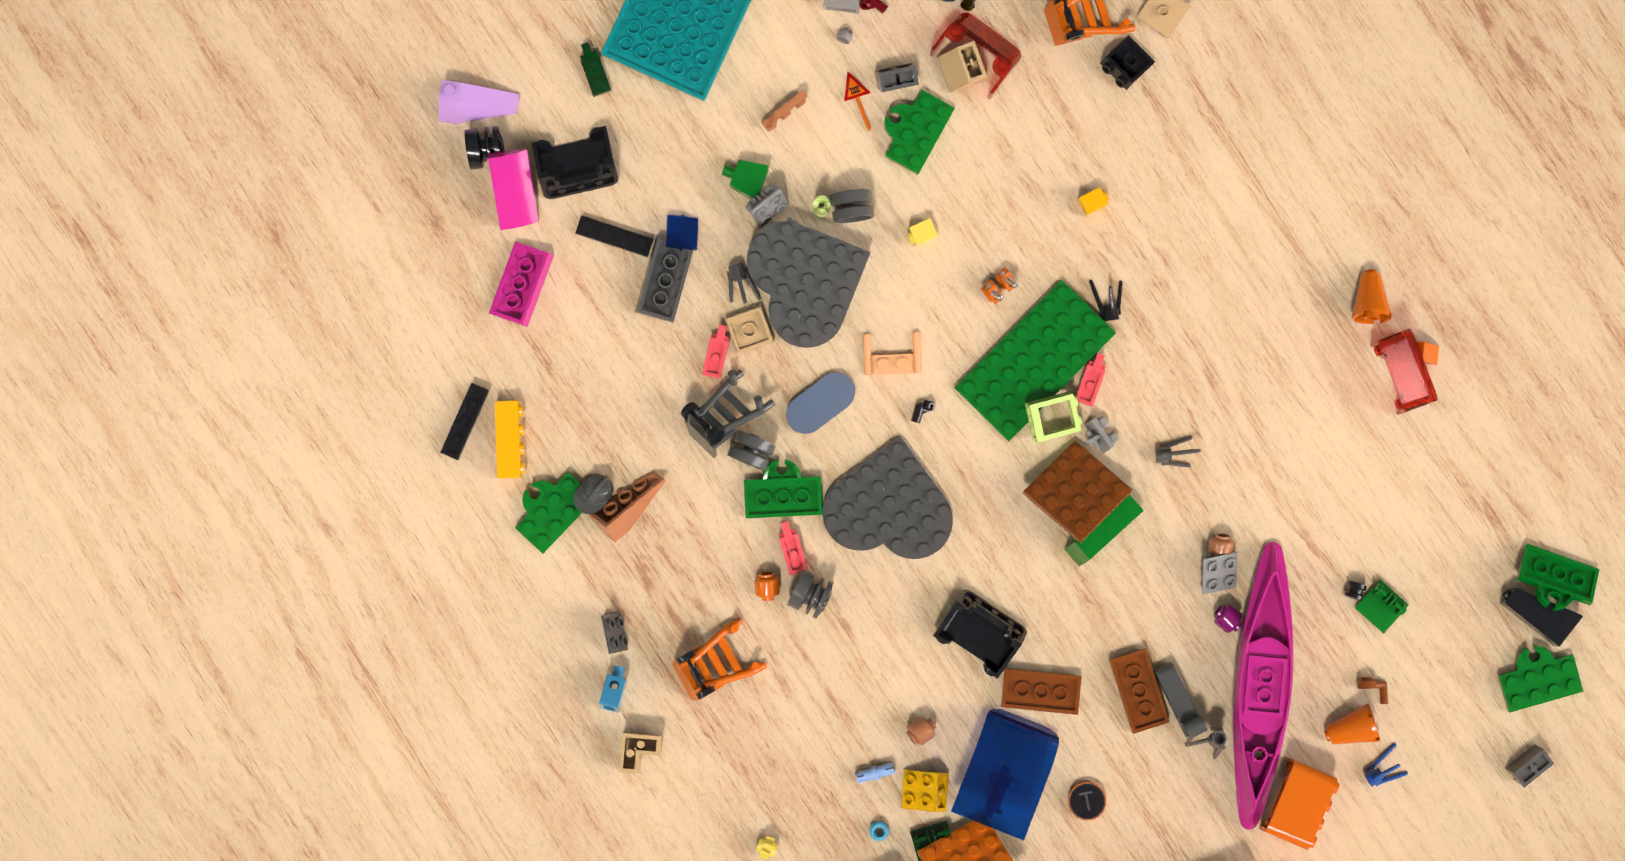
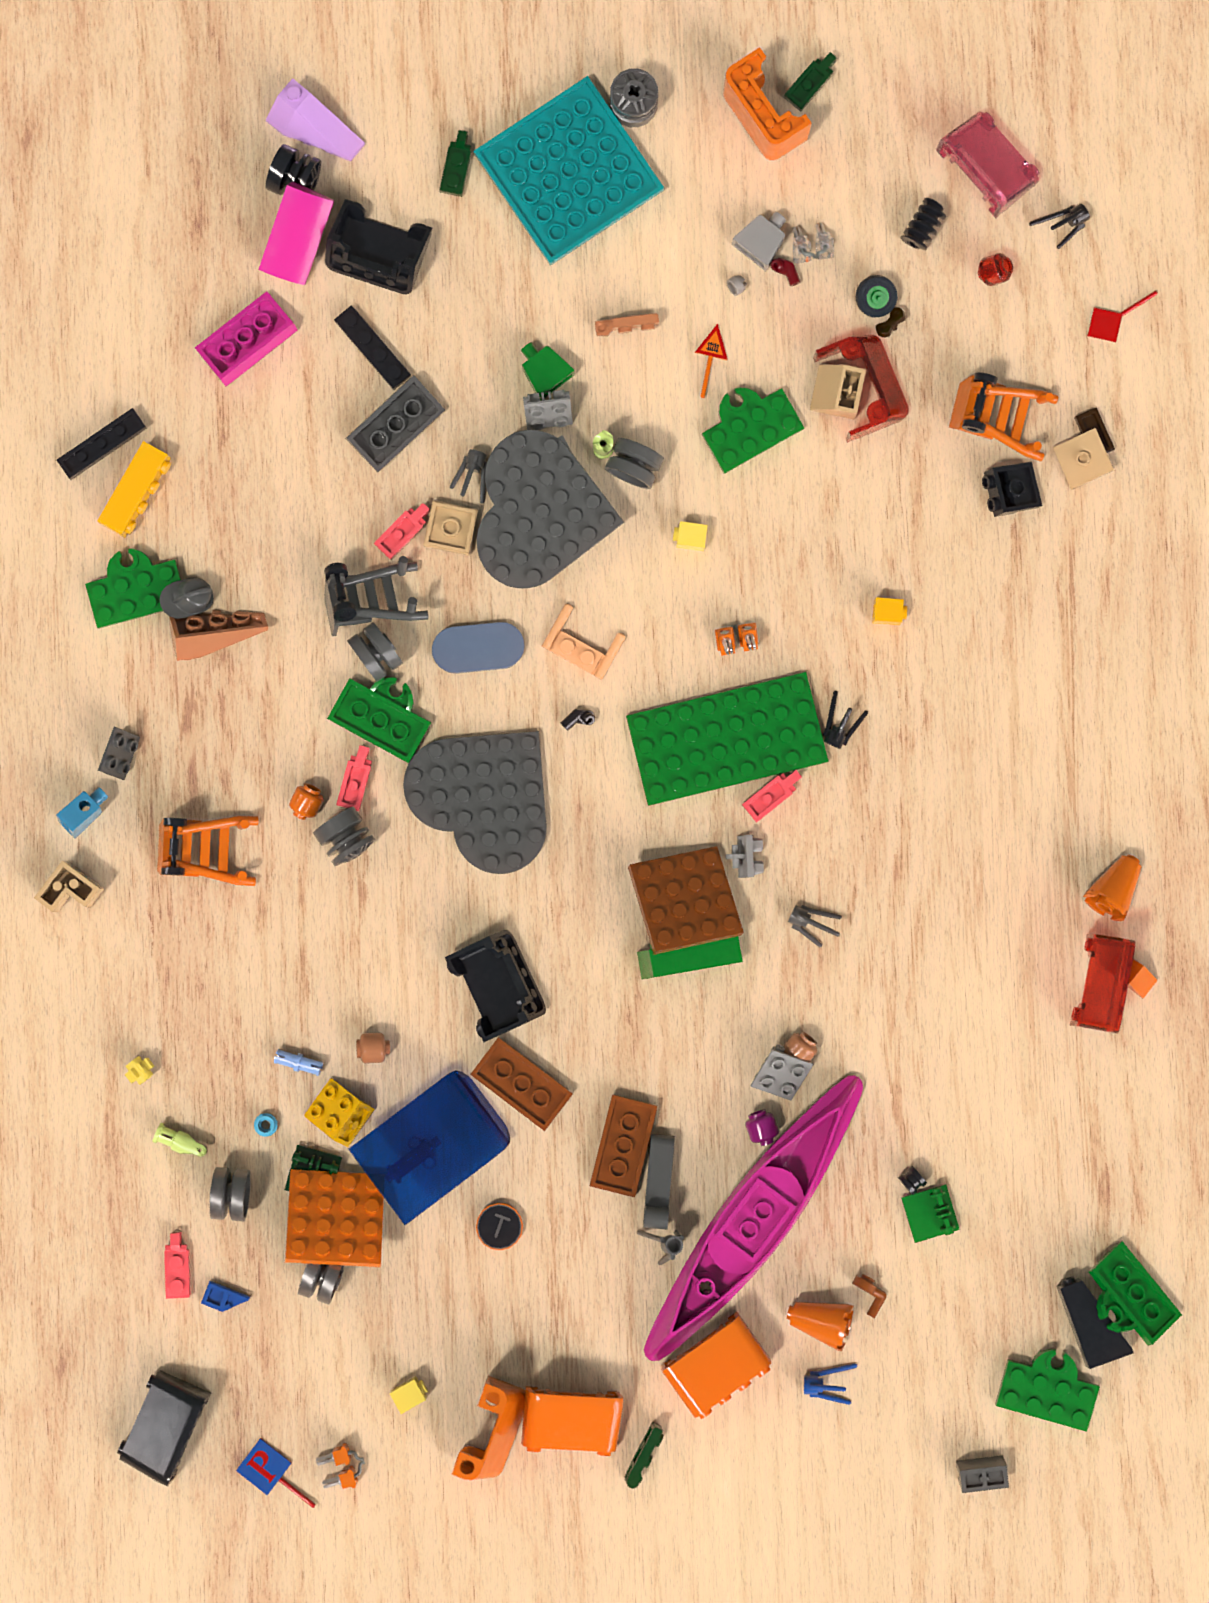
camera: 30 degrees right, 0 degrees up
(681, 232) = (443, 385): clear blue piece -> none
(896, 77) = (762, 359): dark grey brick -> none
(1035, 421) = (687, 799): yellowish green window -> none

